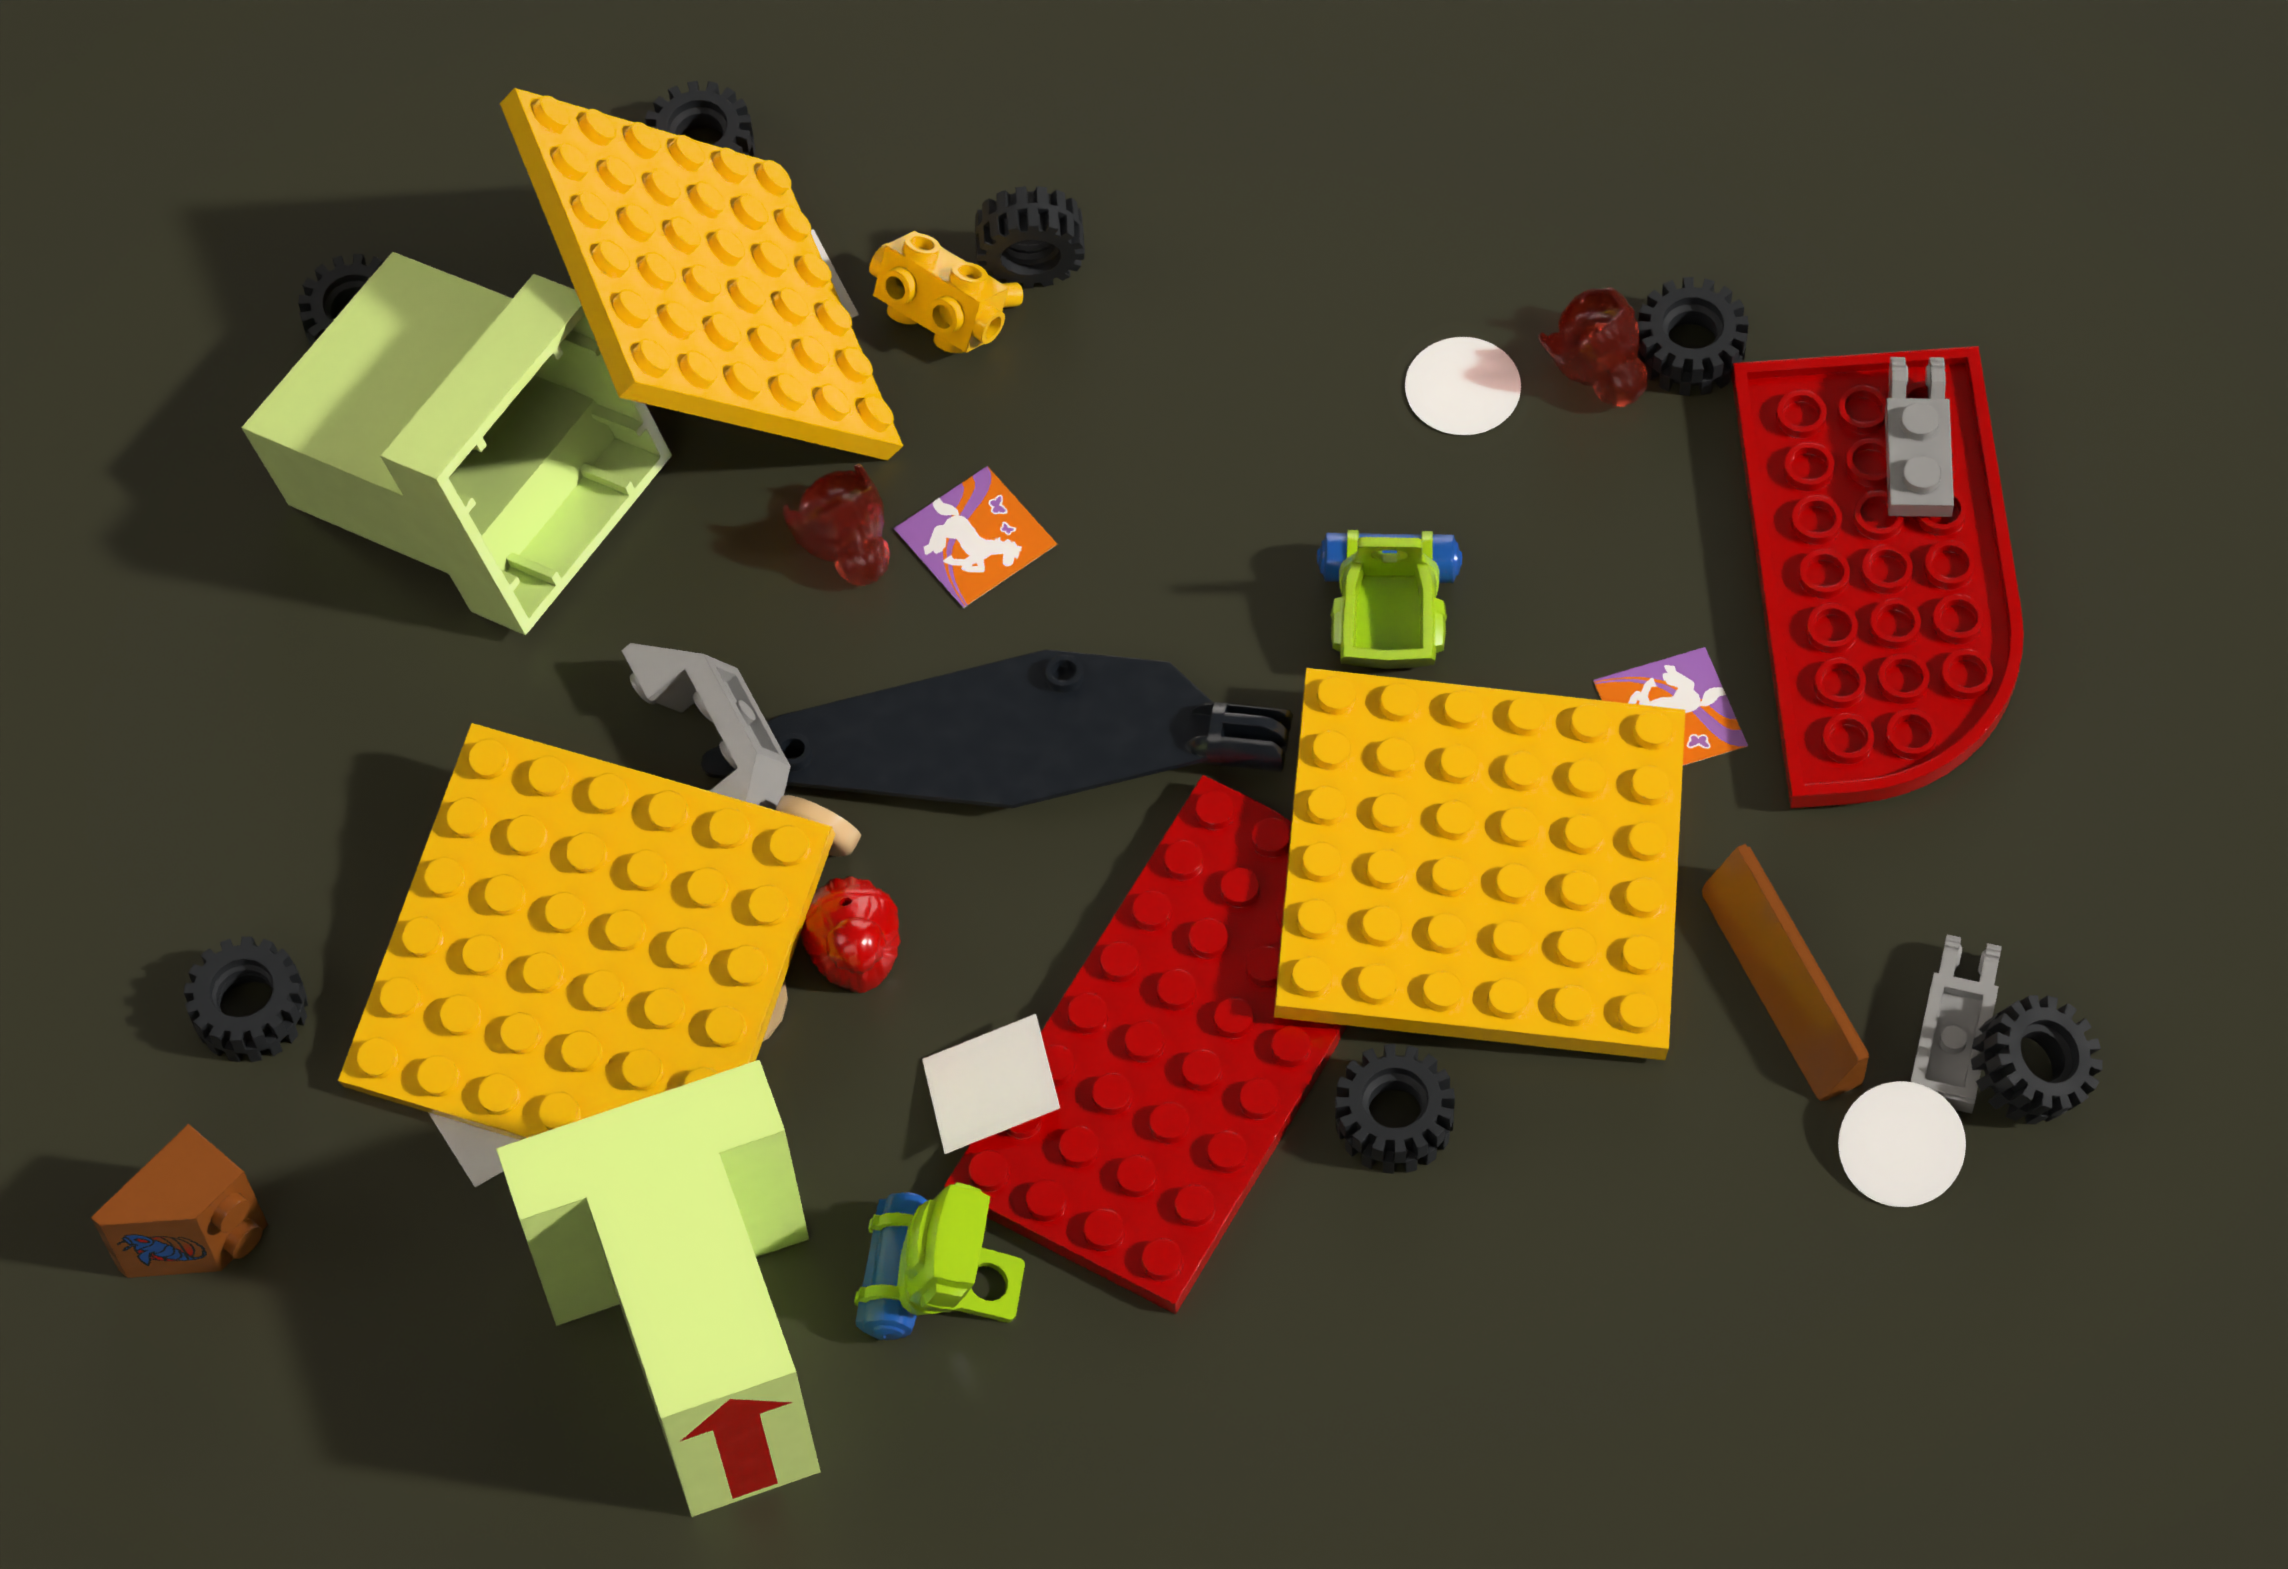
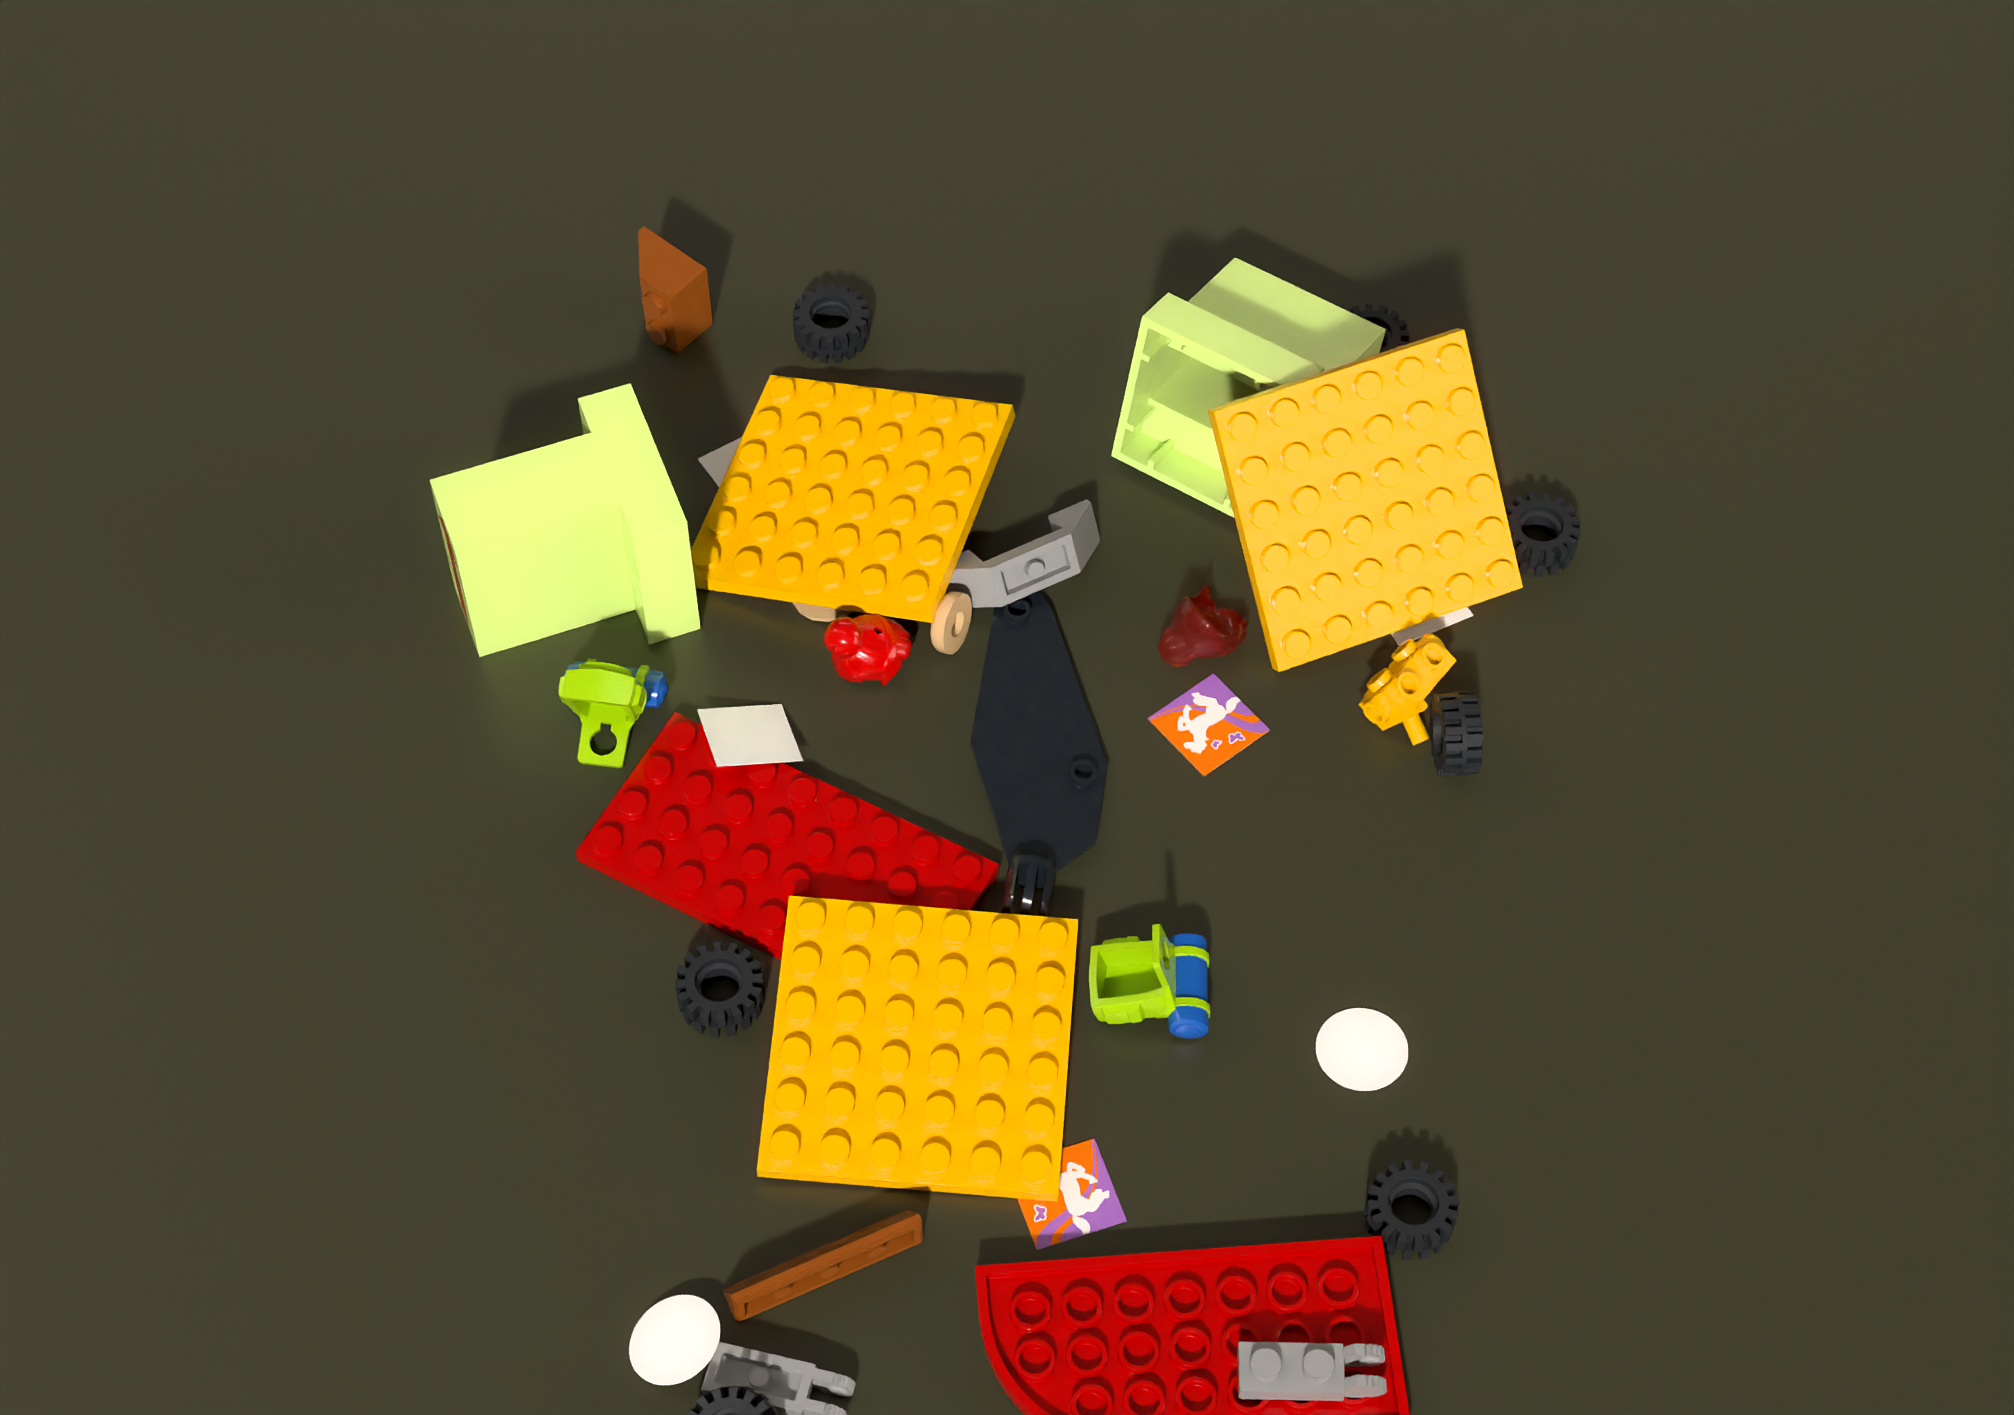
camera: 85 degrees right, 5 degrees down
(1600, 346) = (1389, 1135): clear red piece -> none

